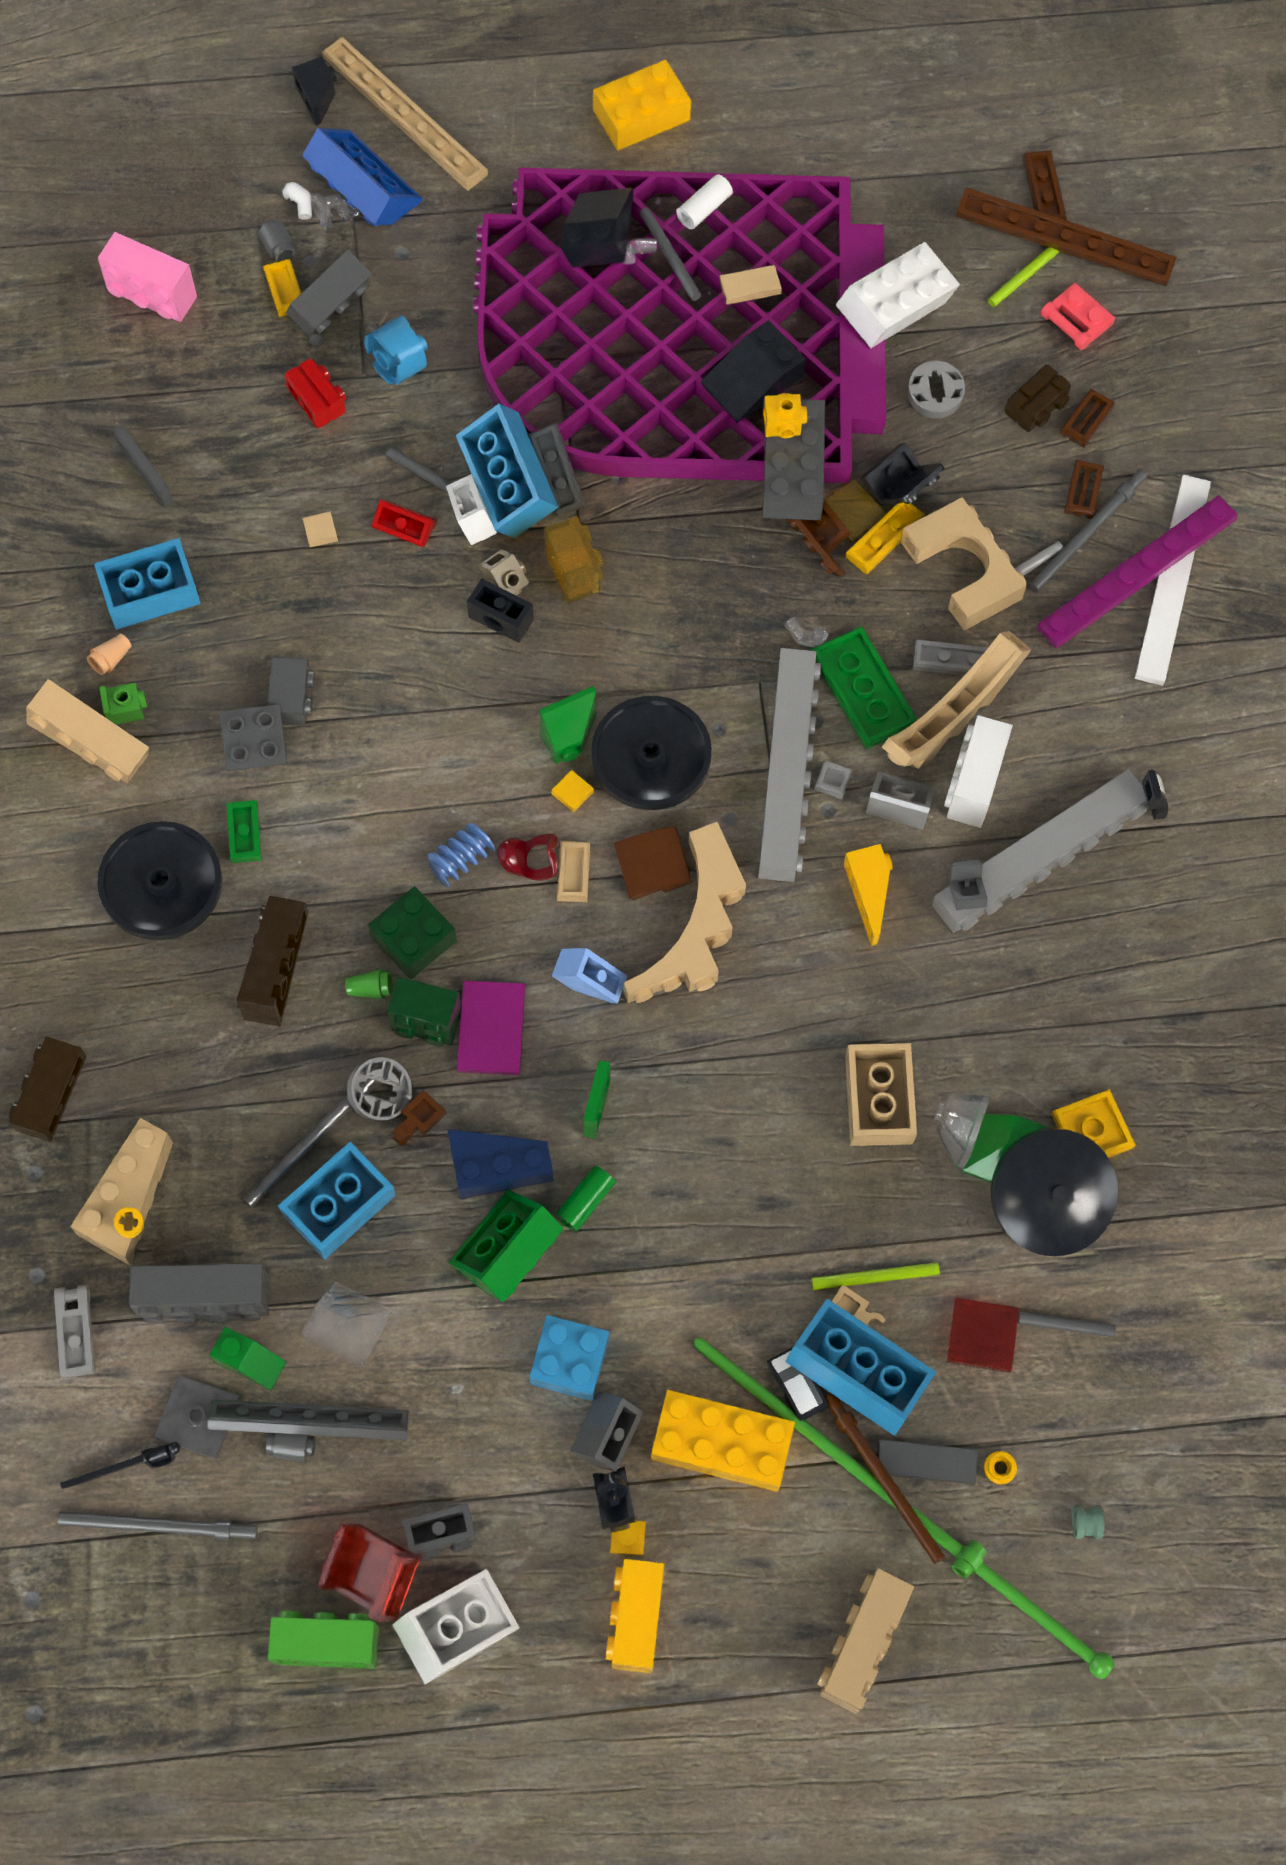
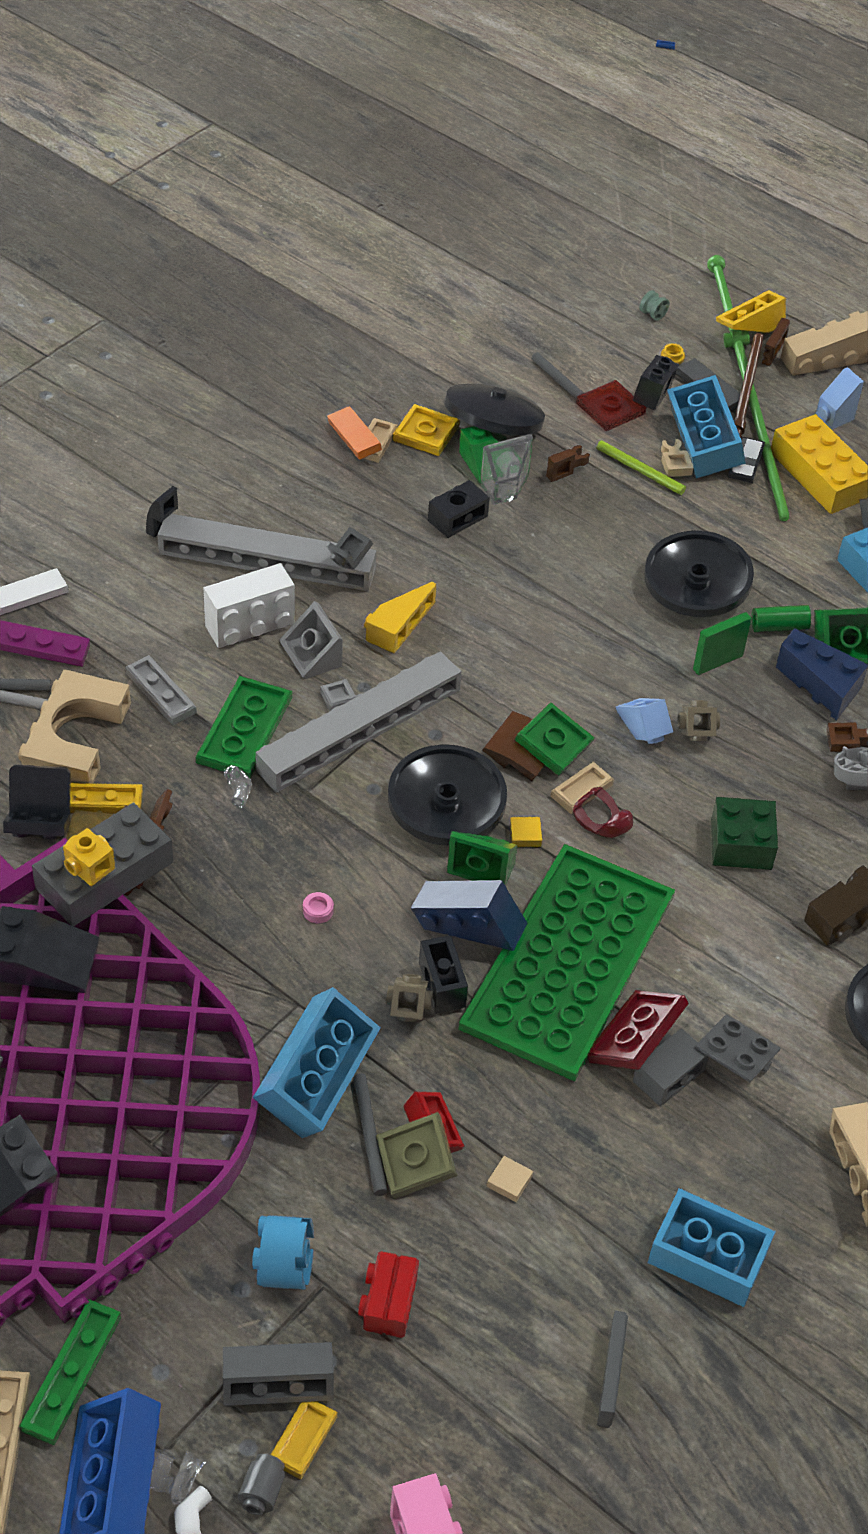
camera: 135 degrees left, 20 degrees down
(108, 654) = (796, 1228): light nougat cone -> none
(127, 711) = (818, 1177): bright green brick -> none
(244, 831) = (805, 1001): green plate -> none
(334, 692) = (637, 1029): none -> dark red tile
(371, 984) = (806, 832): bright green cone -> none
(388, 483) = (416, 1155): none -> olive tile
(424, 1012) = (788, 773): dark green brick -> none
(437, 714) = (570, 962): none -> green plate
(445, 204) = (70, 1372): none -> green plate
(459, 852) = (657, 850): medium blue piece -> none
(470, 509) = (375, 1070): white arch -> none
(491, 1028) = (743, 749): magenta tile -> none
(529, 665) = (471, 911): none -> dark blue wedge
(542, 1005) = (709, 720): none -> dark tan brick
(557, 469) = (271, 1036): dark grey tile -> none
(573, 559) = (347, 953): clear yellow brick -> none
(632, 883) = (554, 739): none -> green tile
(644, 597) = (318, 907): none -> bright pink tile
(692, 1170) = (699, 573): none -> black dish
(709, 925) = (532, 682): tan arch -> none
(783, 1544) = (840, 399): none -> light blue slope
(880, 1094) = (535, 520): tan brick -> none
(927, 1592) = (776, 341): none -> reddish brown tile
(937, 1197) = (563, 463): none -> reddish brown plate
(951, 1068) = (458, 508): none -> black brick
(965, 1388) = (655, 382): none -> black brick
(976, 1590) = (756, 314): none -> yellow slope
(978, 687) = (216, 650): tan arch -> none
(1116, 1072) = (384, 433): none -> tan tile
(1135, 1050) = (354, 432): none -> orange tile

